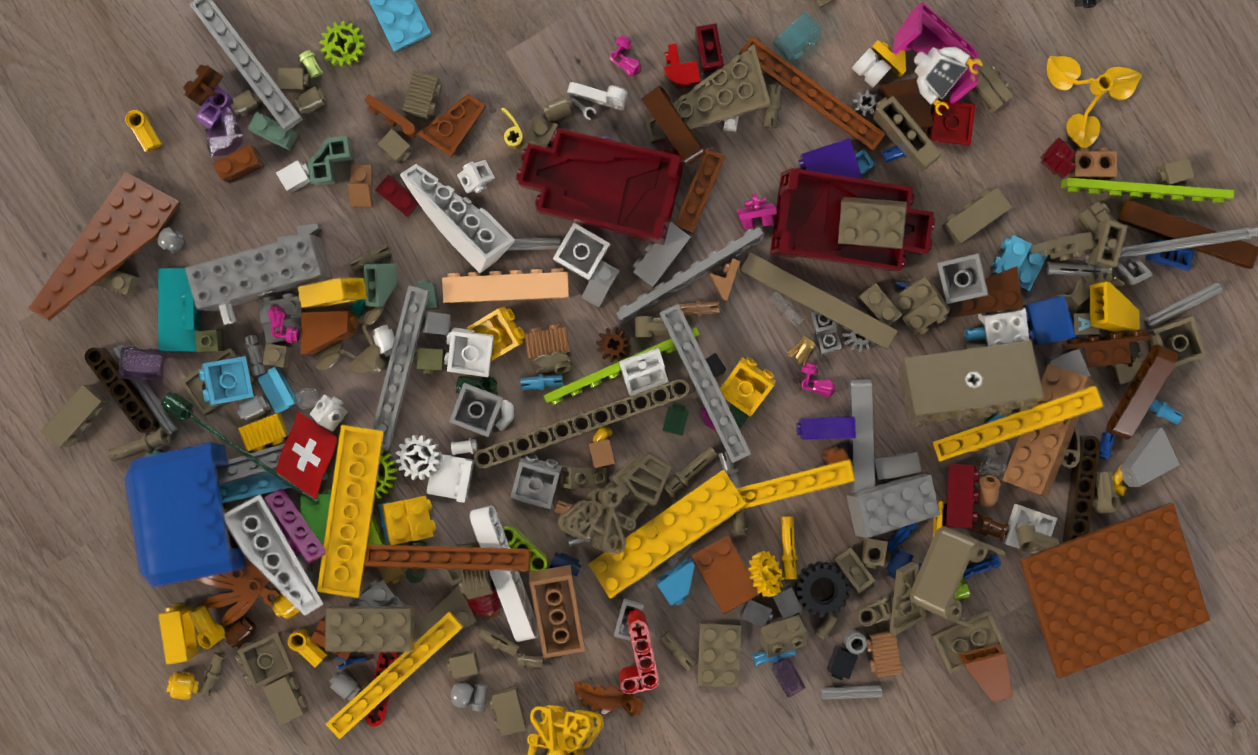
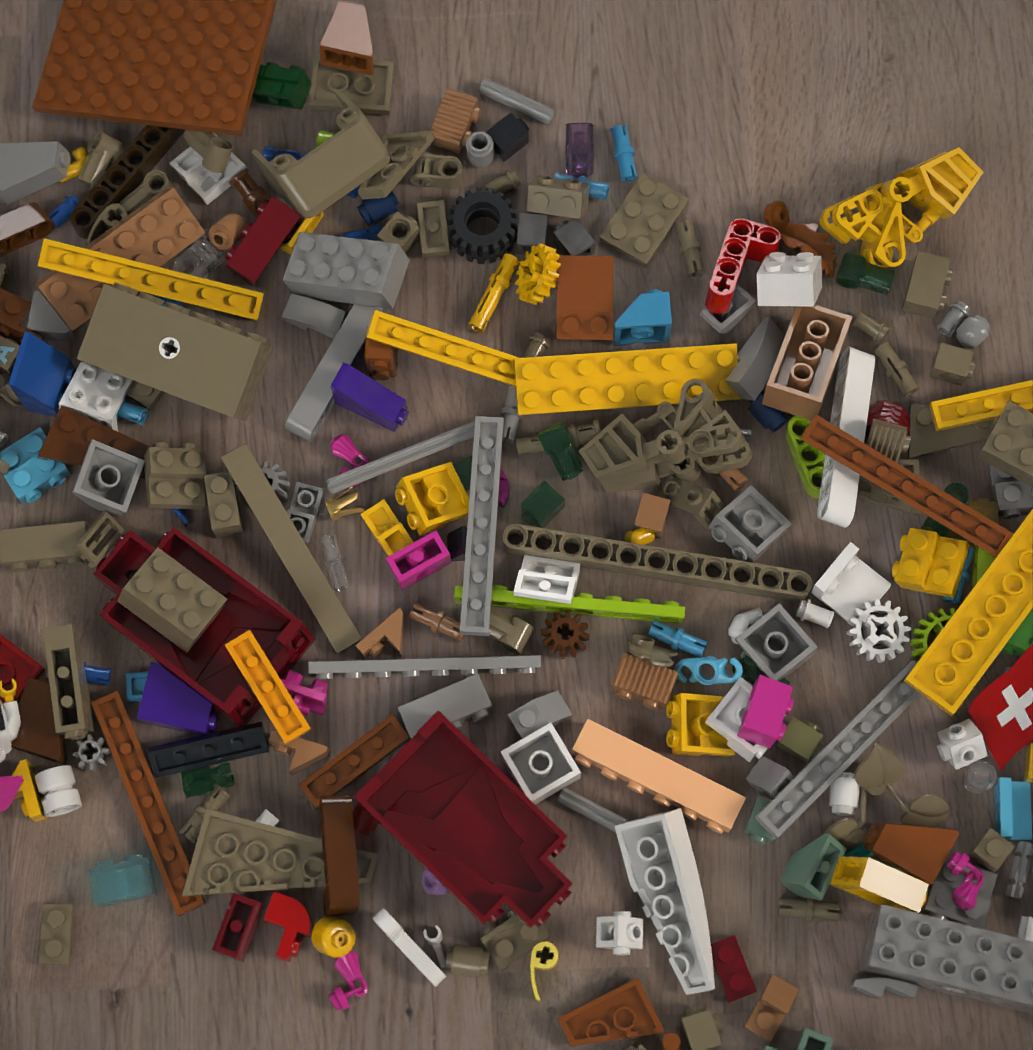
camera: 145 degrees left, 15 degrees down
(458, 361) = (765, 712): none -> dark pink brick
(520, 371) = (720, 676): none -> medium azure piece
(557, 694) = (857, 273): none -> clear green piece
(590, 595) = (756, 360): none -> light grey slope
(597, 660) = (789, 280): none -> white brick
(650, 75) = (333, 936): none -> yellow head
(686, 464) = (559, 446): none -> clear green piece
(732, 339) = (418, 560): none -> dark pink brick
(733, 179) = (306, 752): none -> medium nougat slope
(758, 694) = (624, 153): none -> dark azure pin
(765, 350) = (386, 528): none -> yellow slope
(778, 201) = (267, 687): none -> light orange plate
(783, 400) = (400, 458): none -> light grey axle
(786, 127) = (202, 780): none -> clear green plate
(794, 146) = (208, 749): none -> black plate
(952, 240) = (87, 551): none -> dark tan tile
(1014, 613) = (281, 86): none -> dark green brick
(1060, 487) = (145, 190): none -> dark tan piece

